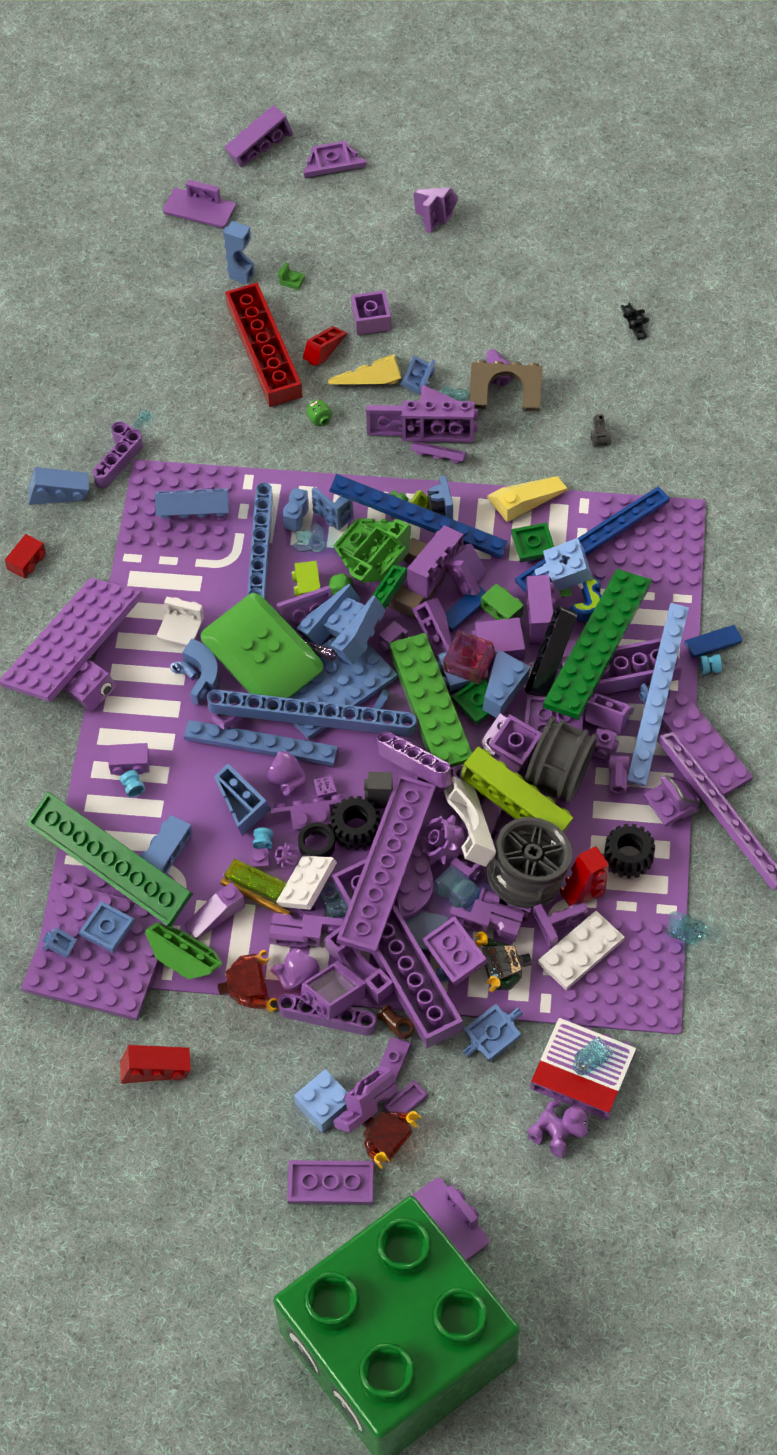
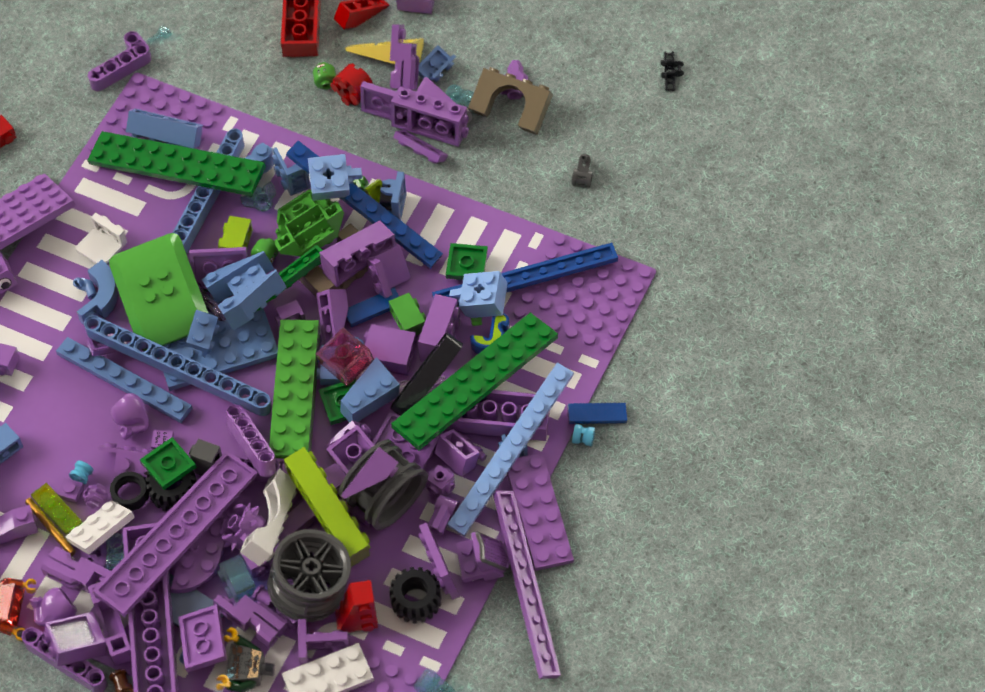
camera: 20 degrees right, 0 degrees up
(57, 486) = (52, 77): medium blue wedge -> none
(220, 530) = (177, 163): none -> green plate
(242, 799) = (77, 428): medium blue wedge -> none
(322, 675) = (201, 332): none -> medium blue bracket
(349, 803) = (168, 463): none -> green plate
(350, 413) = (348, 84): none -> red brick
(382, 699) = (257, 369): medium blue tile -> none
(383, 497) = (340, 175): none -> light blue hinge
(387, 370) = (406, 60): none -> medium lavender plate
(523, 497) = (478, 215): light yellow wedge -> none
(560, 744) = (376, 469): none -> medium lavender slope
(641, 812) = (437, 561): none -> medium lavender plate

